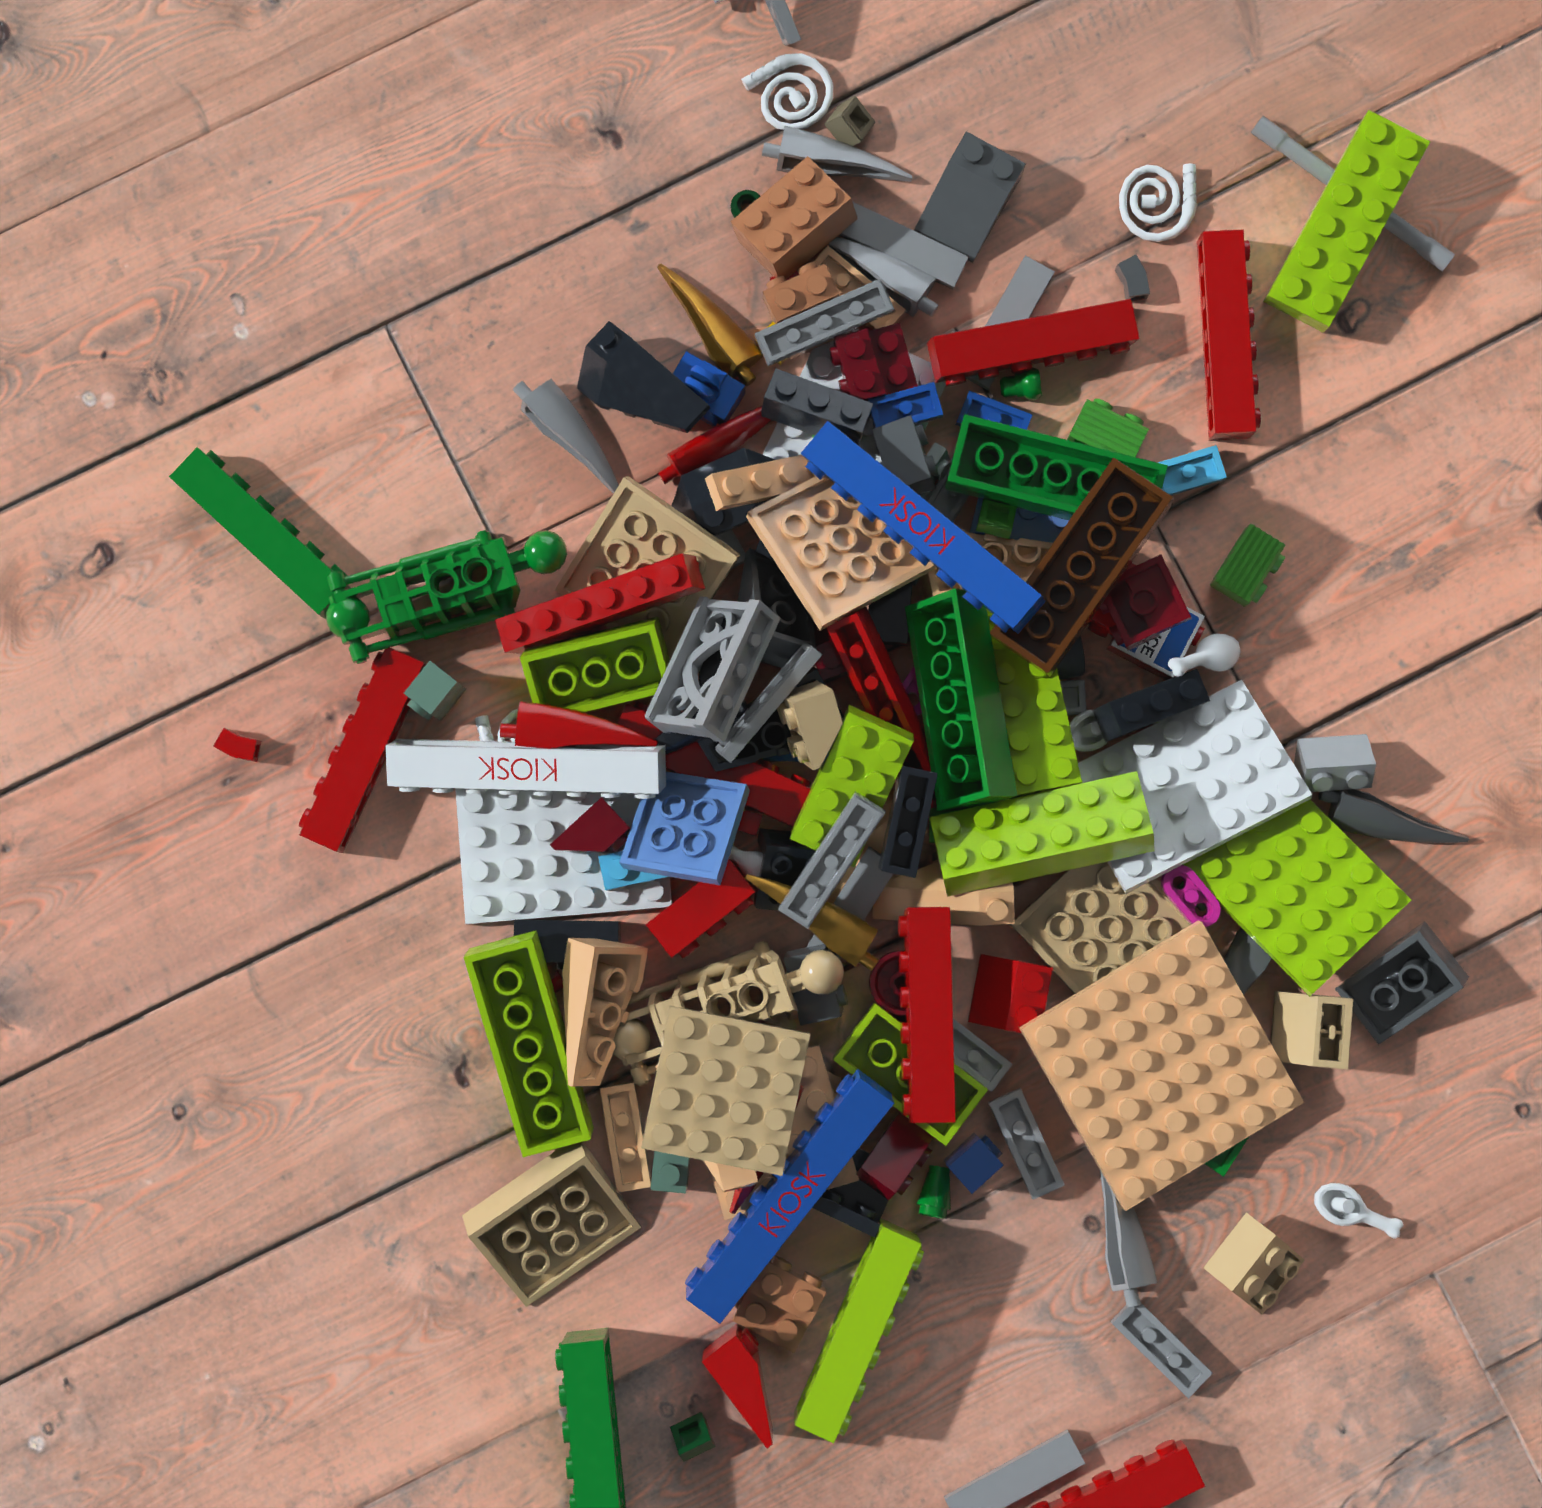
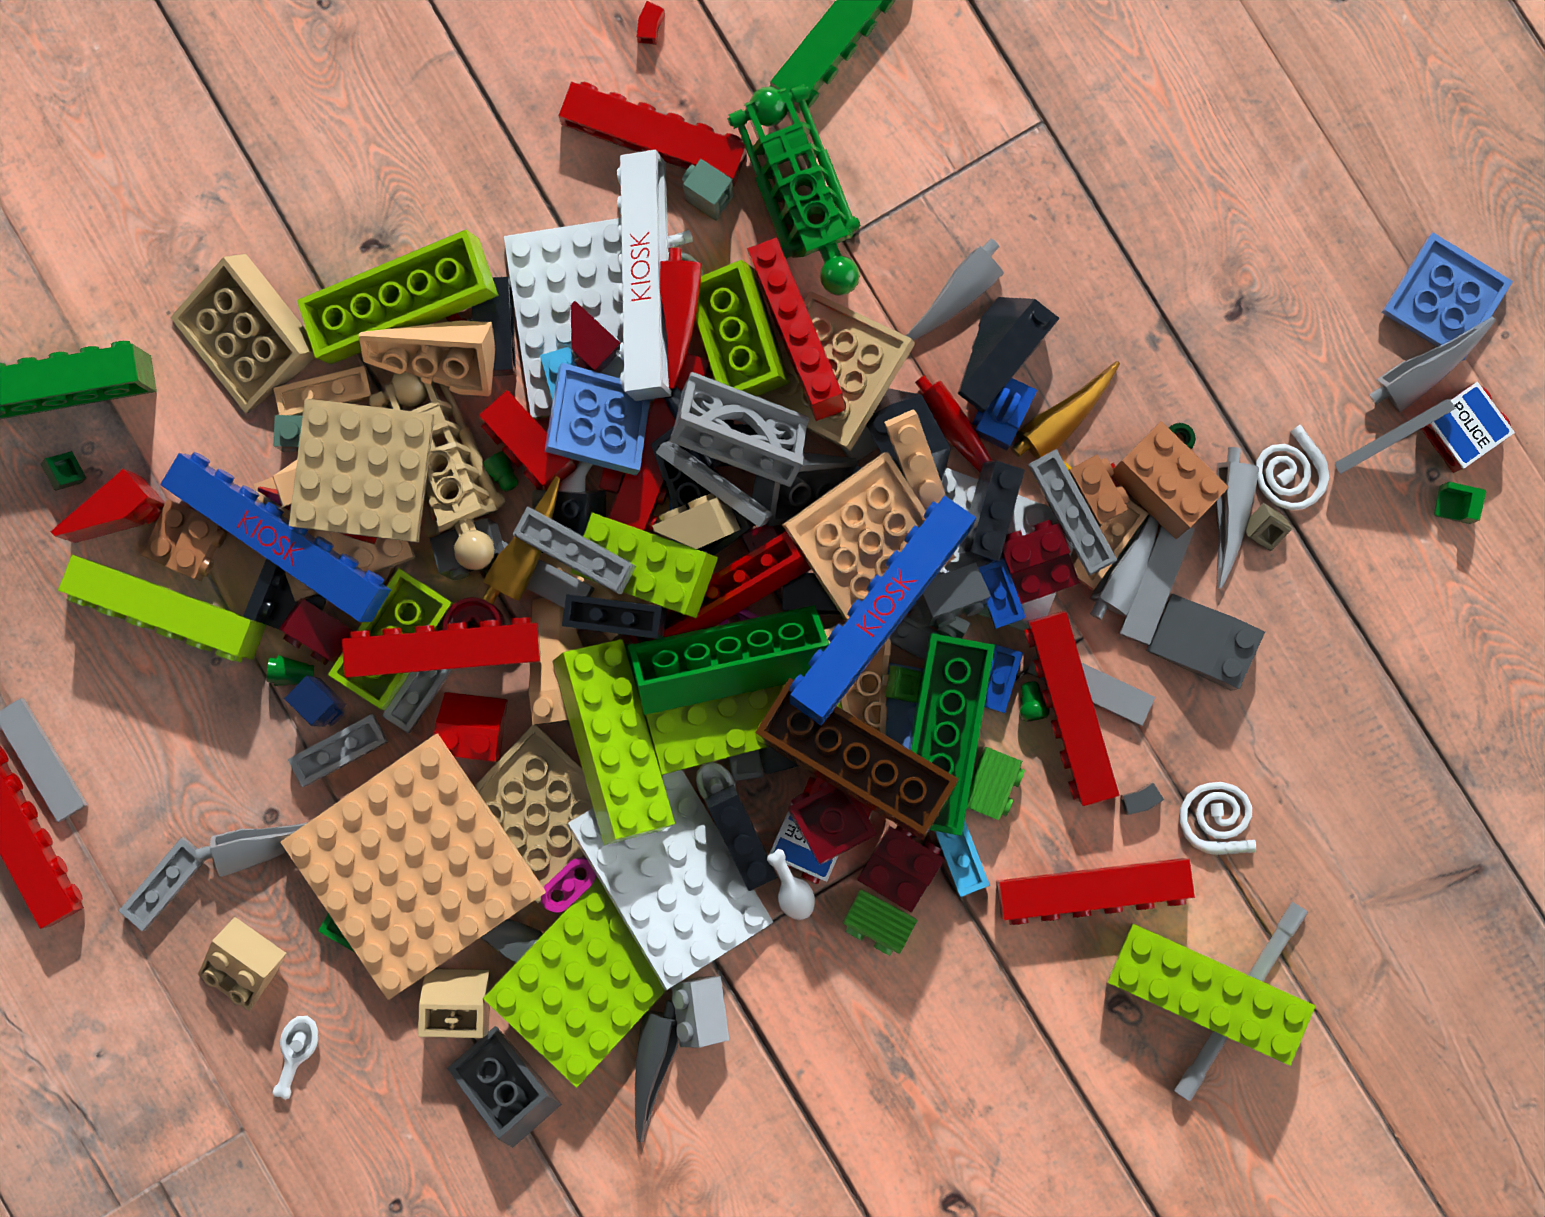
camera: 85 degrees right, 0 degrees up
(728, 943) = (500, 469): none -> green piece
(1191, 538) = (901, 867): none -> dark red plate

